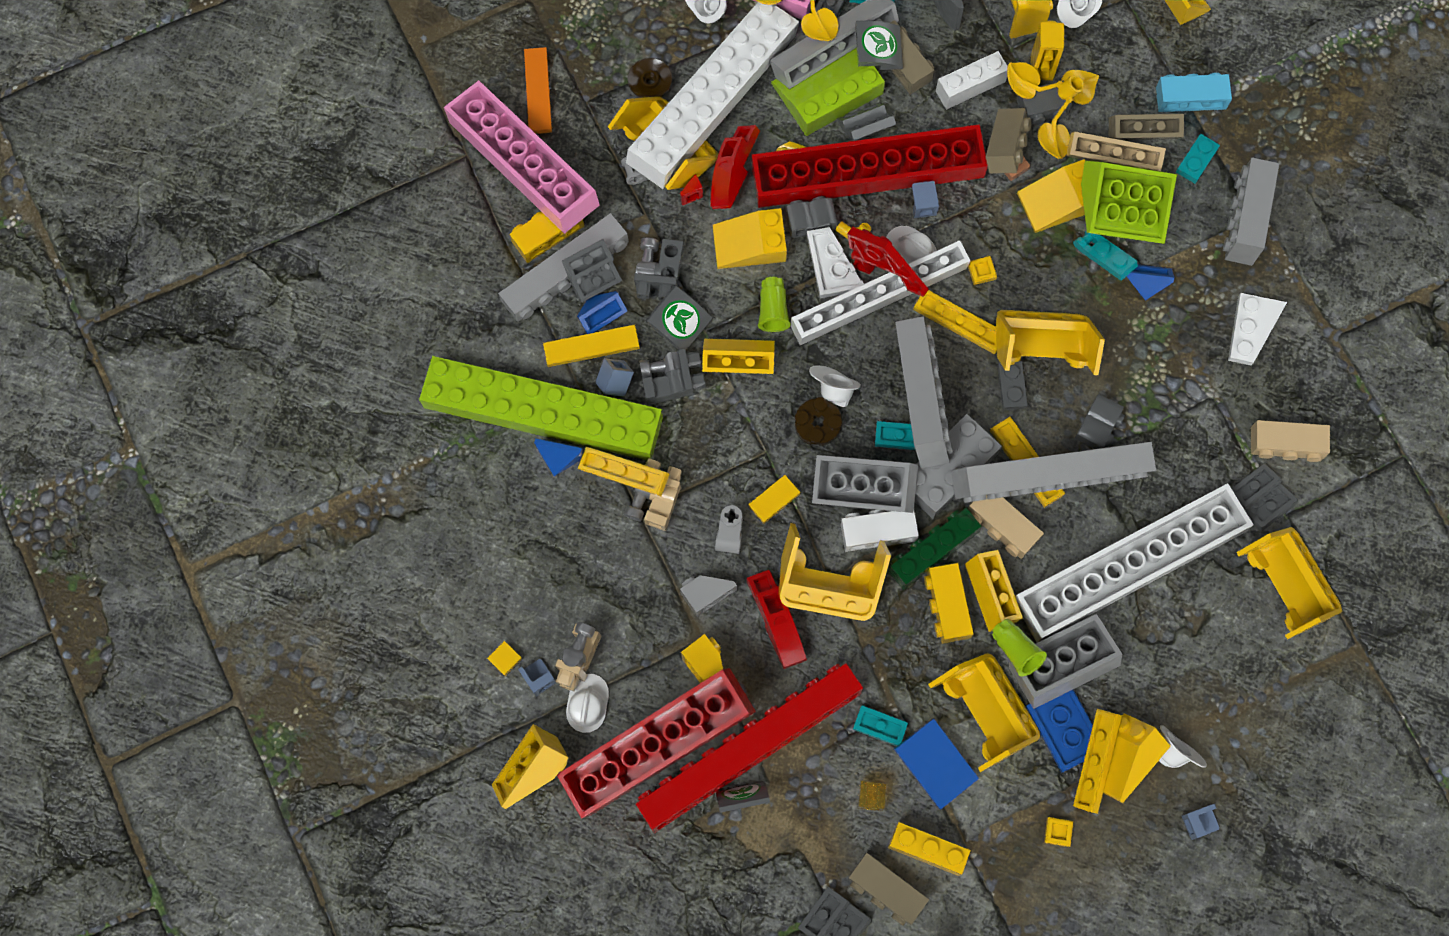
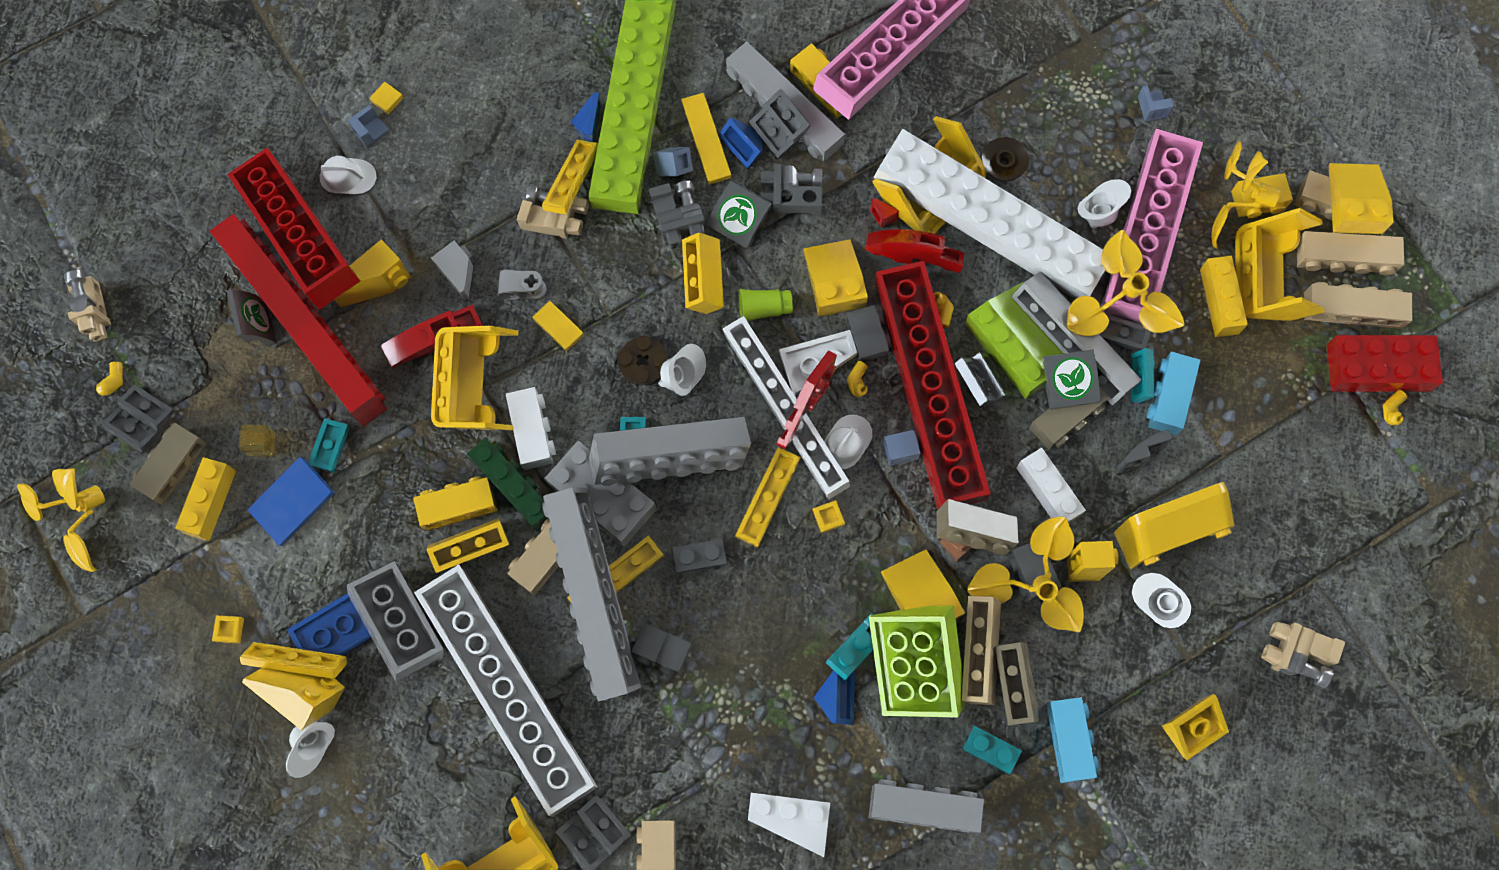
camera: 85 degrees right, 0 degrees up
(530, 766) = (277, 127): yellow slope -> none
(538, 90) = (979, 56): orange tile -> none
(578, 657) = (384, 158): hips -> none
(865, 483) = (567, 403): light grey brick -> none
(993, 705) = (350, 558): yellow windscreen -> none
(1018, 647) = (398, 565): lime plant -> none
(1048, 336) = (756, 579): yellow windscreen -> none
(1201, 822) = (237, 774): sand blue panel -> none

